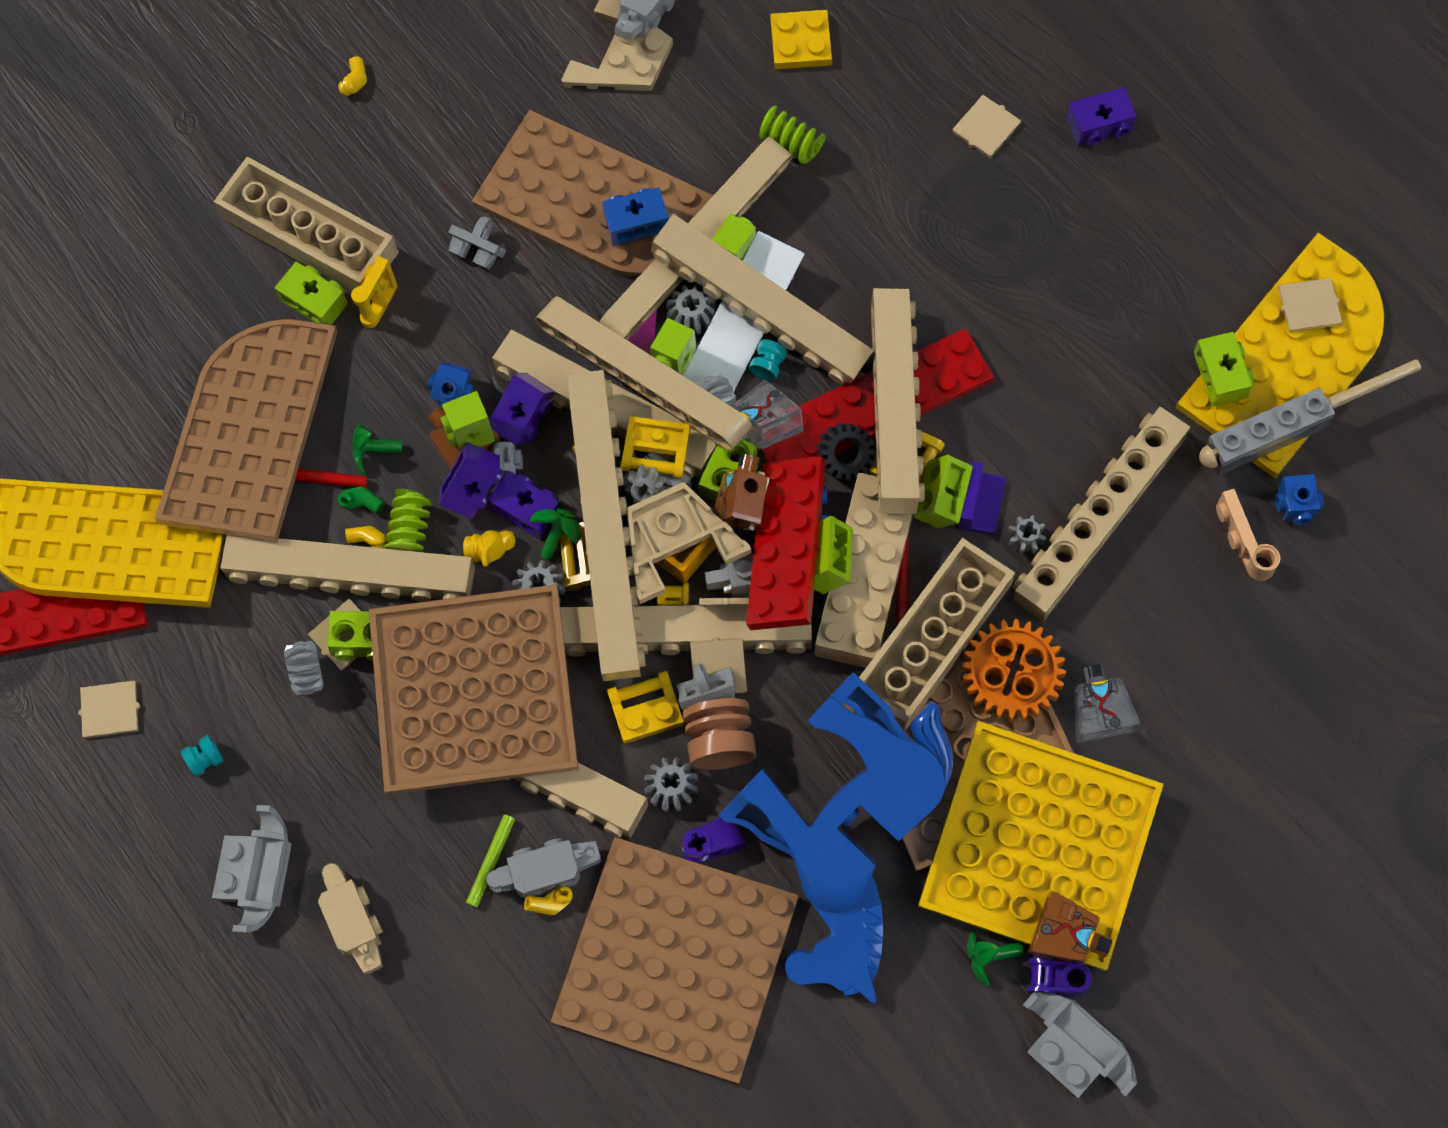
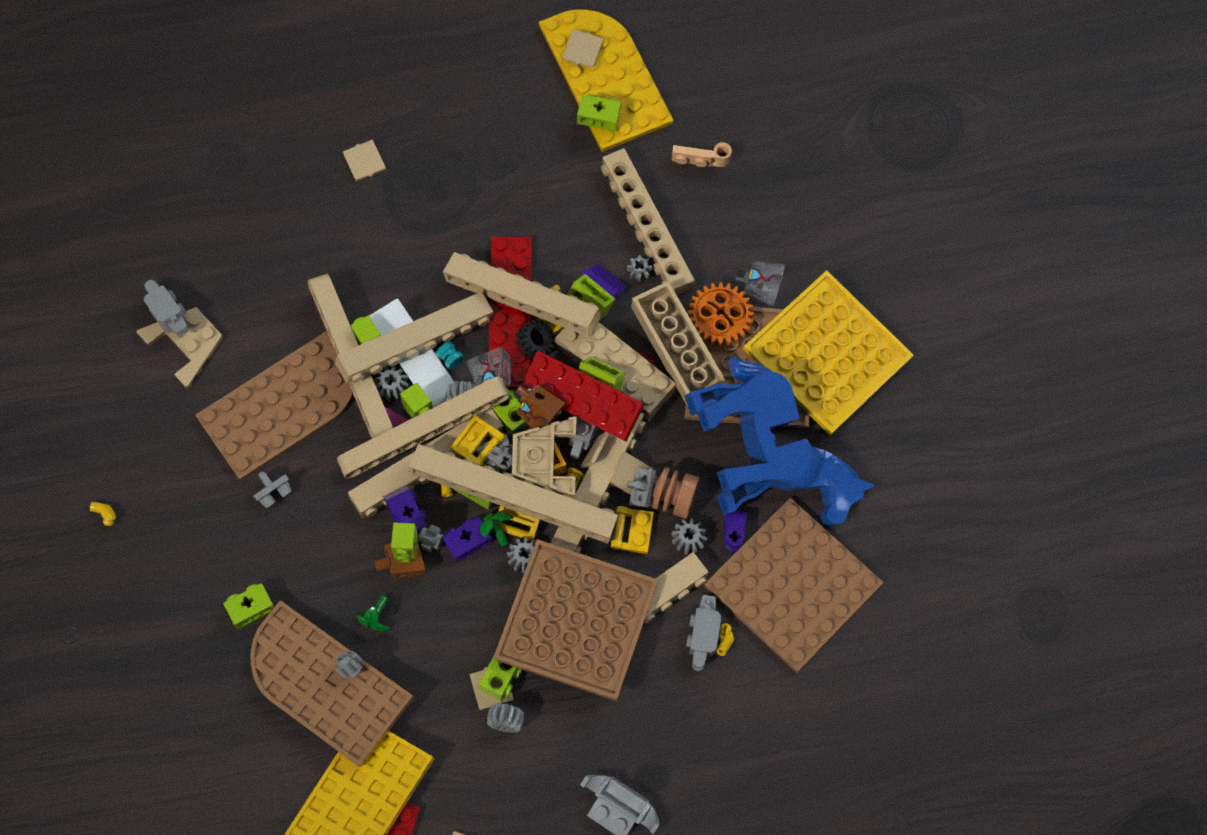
camera: 70 degrees left, 0 degrees up
(201, 755) = (528, 807): teal wheel -> none
(277, 439) = (348, 664): none -> light grey gear
(302, 224) = (199, 587): tan brick -> none
(331, 478) = (384, 647): red bar -> none
(347, 568) = (451, 663): tan brick -> none
(349, 919) = (679, 761): tan hinge -> none
(360, 497) = (405, 636): green arm -> none
(366, 534) = (434, 642): yellow arm -> none
(379, 287) = (270, 561): yellow plate -> none
(407, 521) = (441, 615): lime piece -> none
(450, 373) = (363, 546): blue brick -> none
(470, 480) = (437, 561): dark purple brick -> none
(488, 546) = (482, 573): yellow animal -> none
(490, 860) = (682, 663): lime bar -> none
(625, 226) = (316, 393): blue brick -> none
(792, 138) = (308, 269): lime piece -> none
(801, 39) = (242, 234): yellow plate -> none
(985, 952) = (875, 413): green plant -> none
(1056, 977) = (904, 385): dark purple piece -> none
(1067, 931) = (885, 362): dark orange torso -> none
(1078, 1045) = (948, 391): light grey plate -> none
(1101, 117) = (393, 102): dark purple brick -> none
(1286, 423) = (651, 95): light grey piece -> none
(1299, 499) = (696, 116): blue brick -> none

